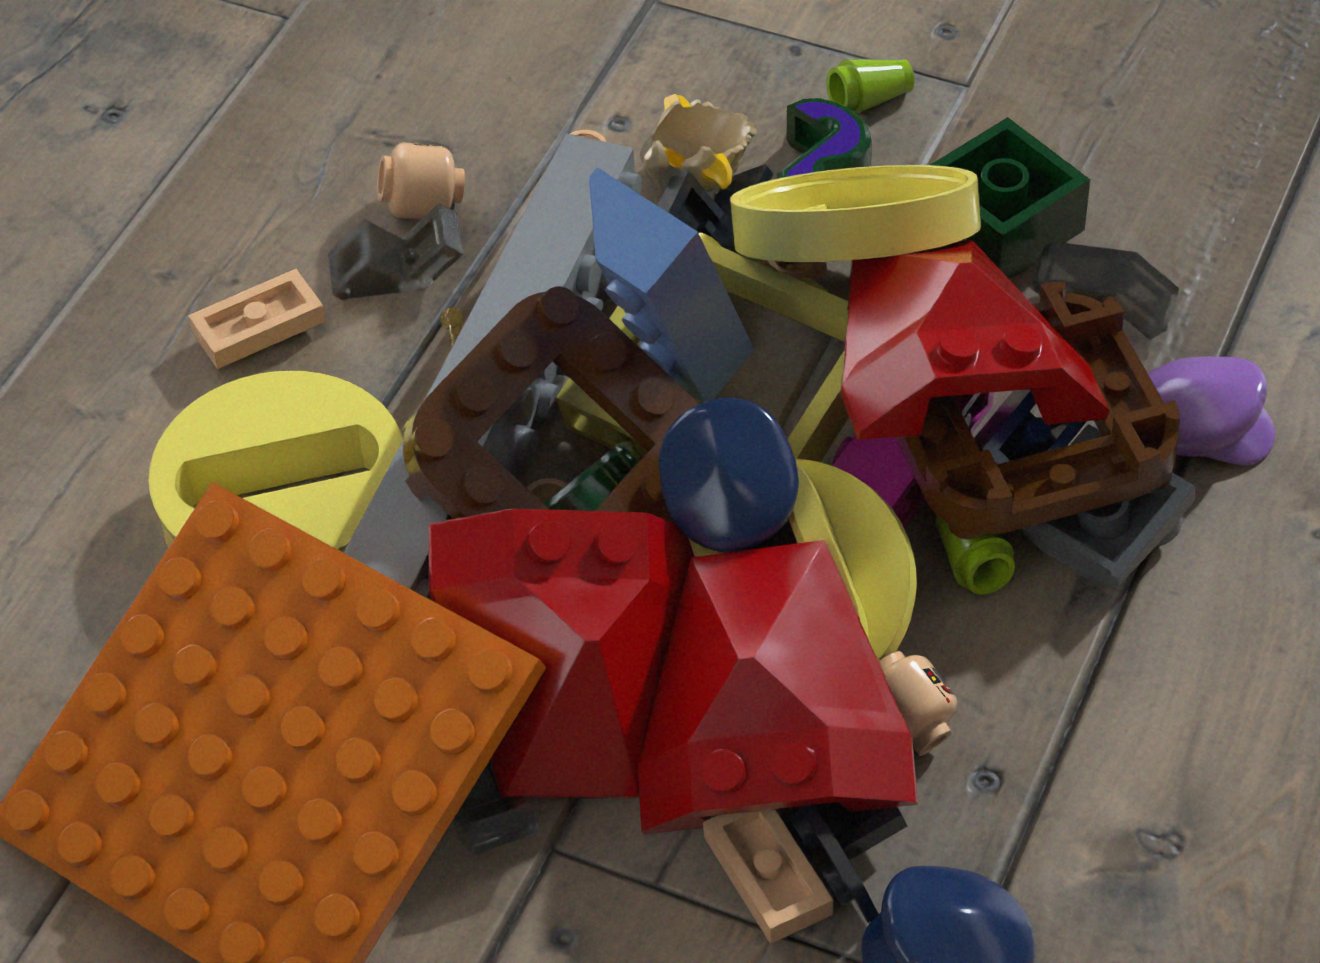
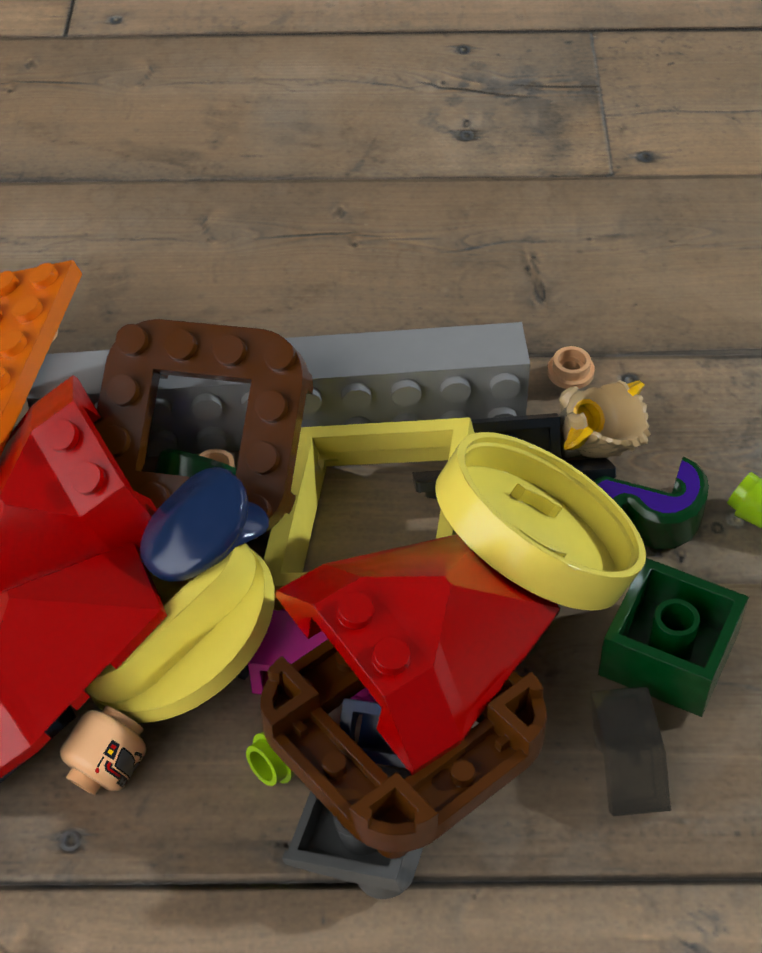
camera: 65 degrees right, 0 degrees up
(256, 318) = (313, 261): light nougat plate -> none
(274, 434) = (179, 280): light yellow piece -> none
(381, 263) = (407, 305): clear smoke slope -> none
(418, 180) = (481, 288): light nougat head -> none
(666, 289) = (328, 403): medium blue slope -> none
(1218, 407) = (527, 876): medium lavender piece -> none

